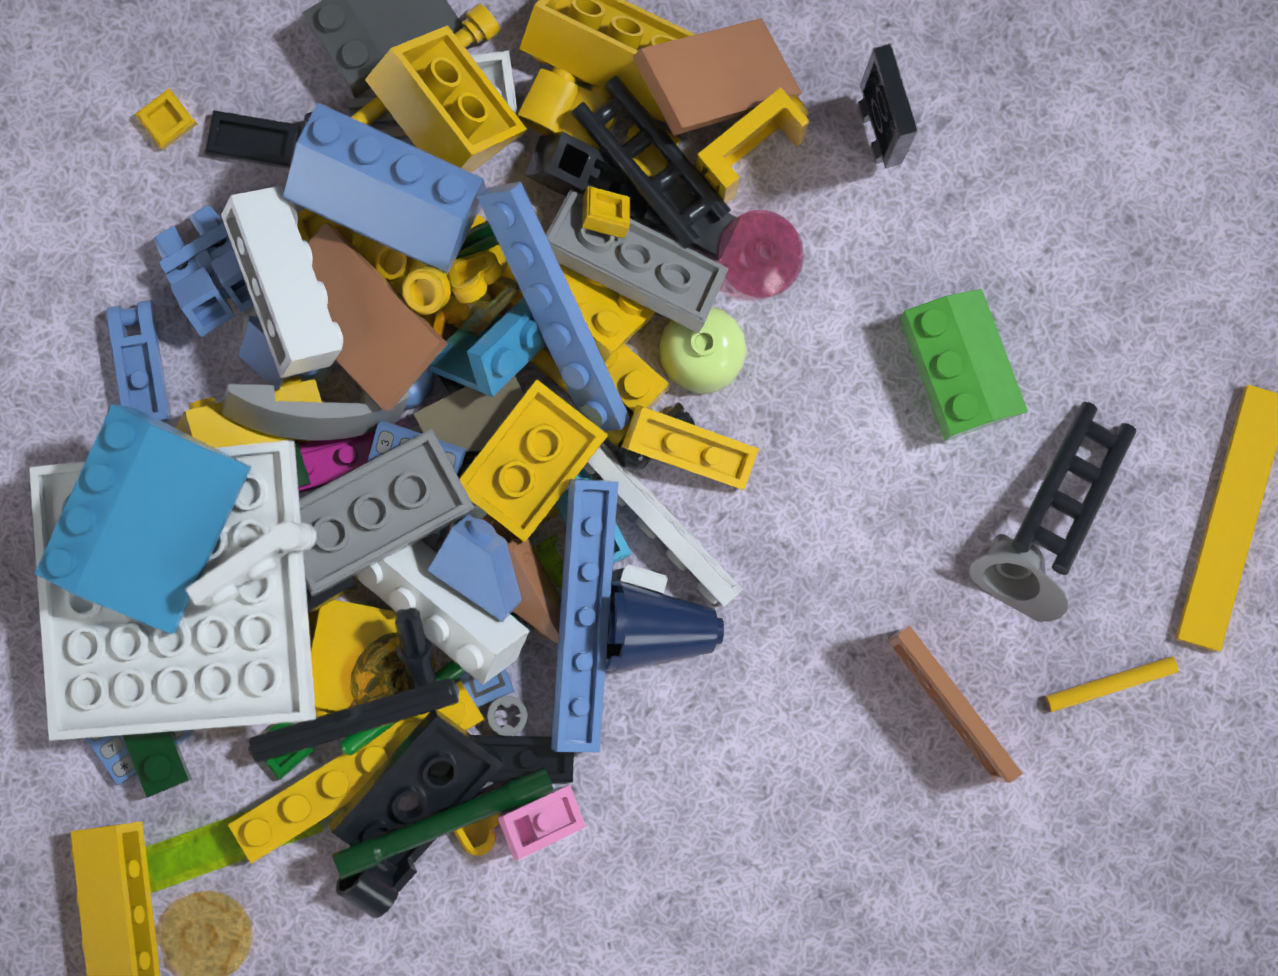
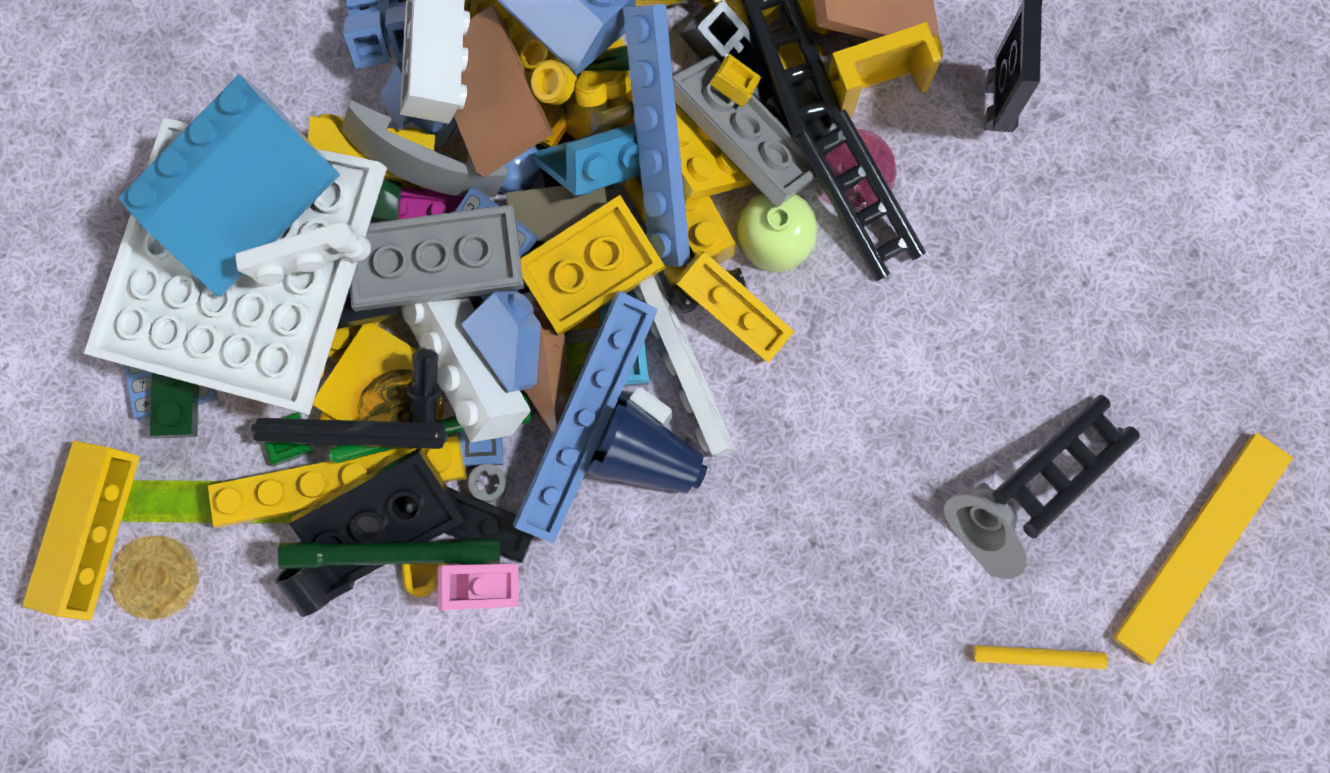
camera: 30 degrees right, 5 degrees down
(139, 360) = (300, 73): medium blue plate -> none
(748, 289) = (885, 204): none -> black bar
(954, 706) = (888, 621): nougat tile -> none
(962, 363) = (1001, 322): bright green slope -> none

